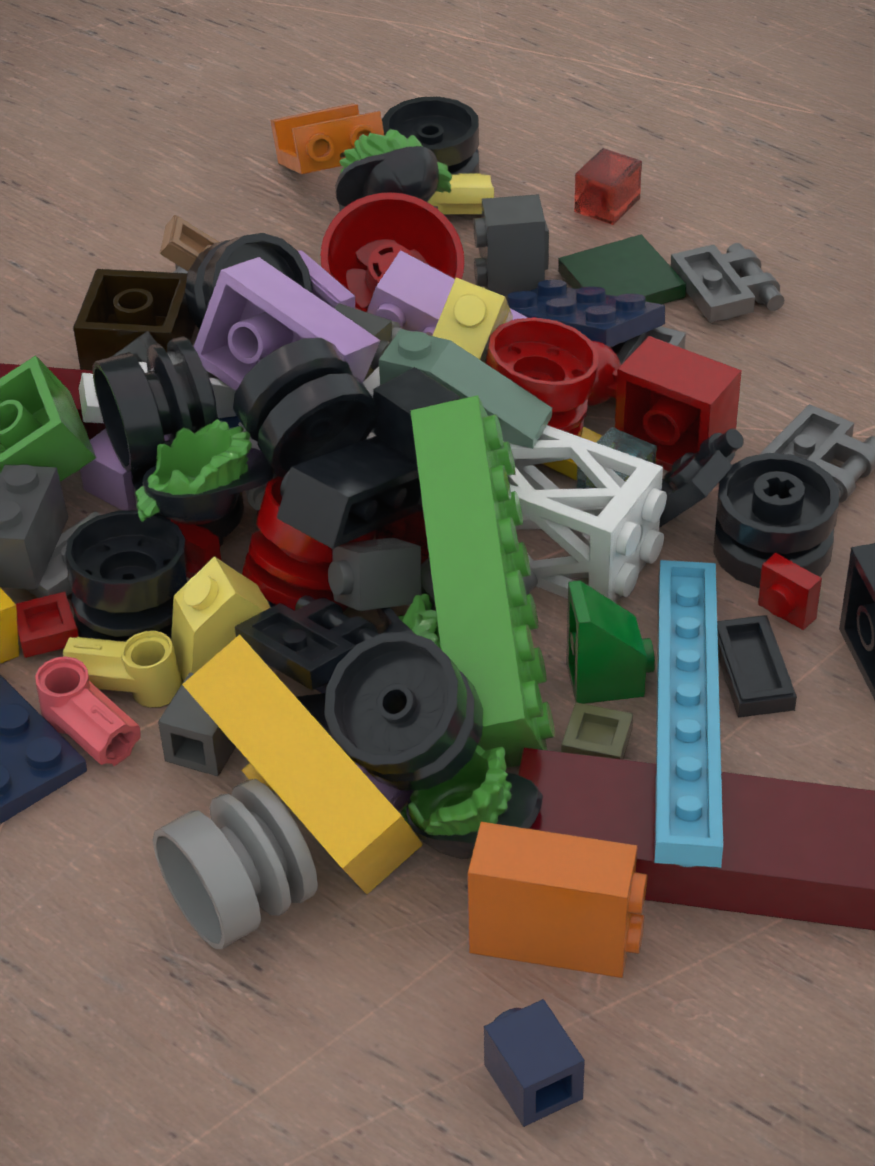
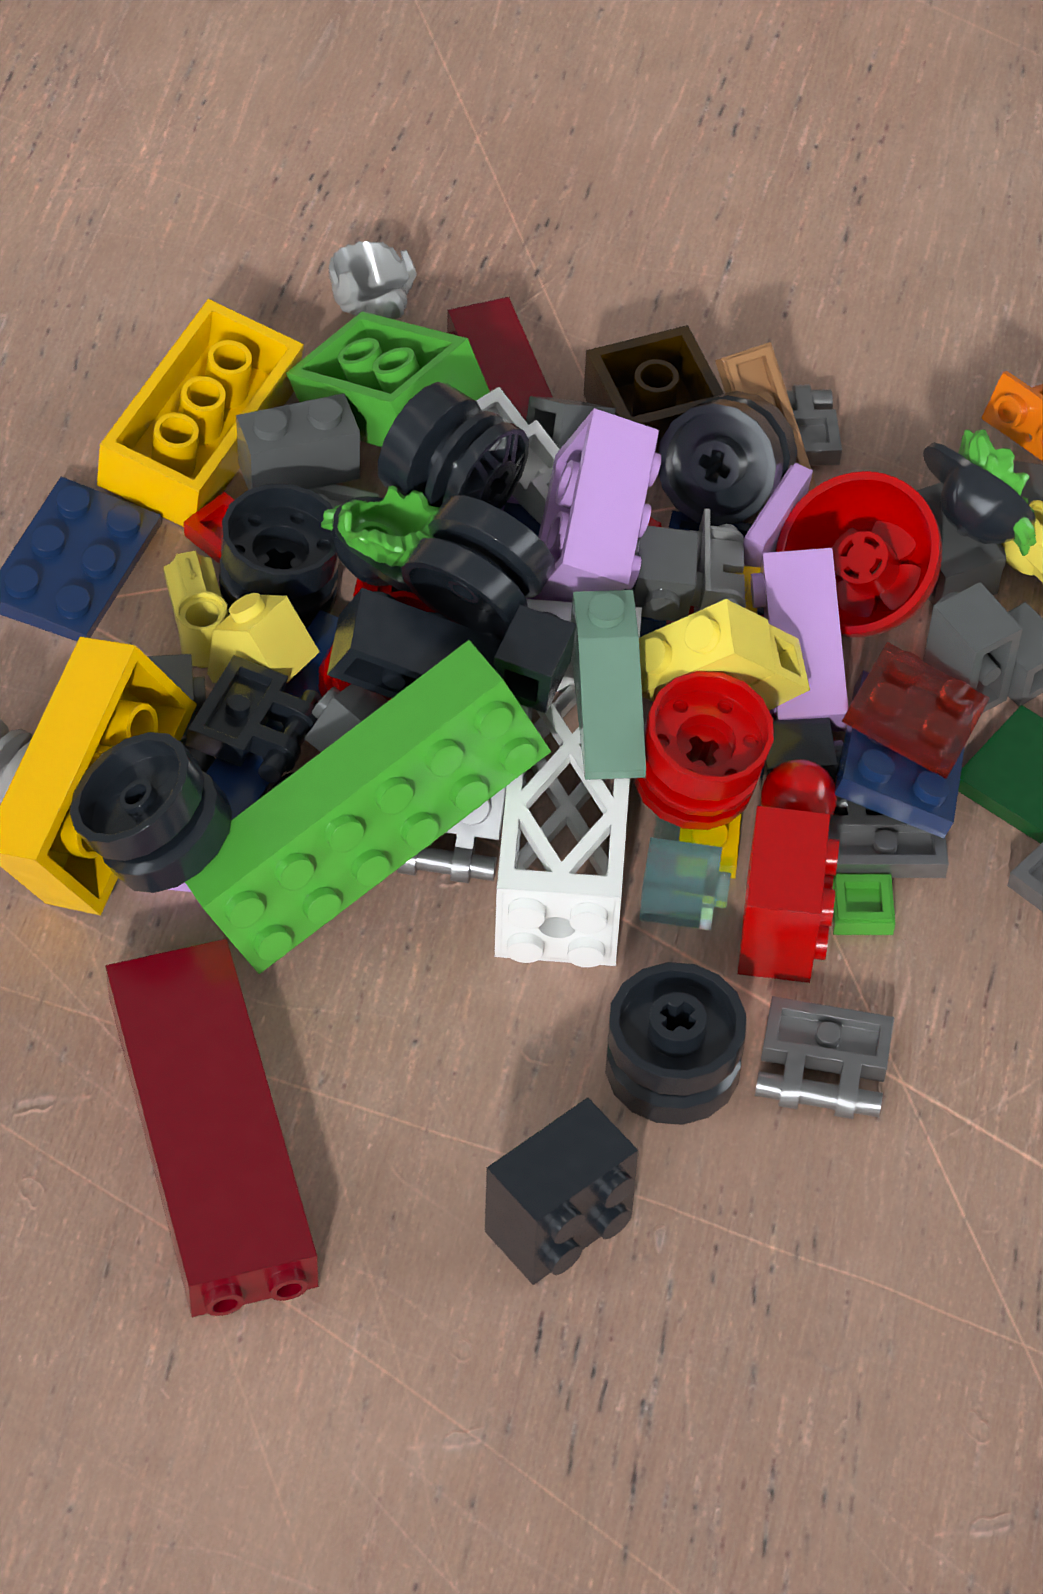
camera: 60 degrees right, 10 degrees up
(84, 712) = (132, 598): coral piece -> none
(482, 791) = (136, 929): bright green hair -> none
(555, 283) = (916, 710): none -> clear red plate
(555, 899) = (55, 1026): orange brick -> none
(597, 732) = (301, 1000): olive plate -> none
(604, 648) = (400, 954): green slope -> none
(688, 718) = (338, 1045): medium azure plate -> none
(698, 473) = (658, 940): black plate -> none
(754, 667) = (478, 1100): black tile -> none
(789, 591) = (584, 1081): red plate -> none

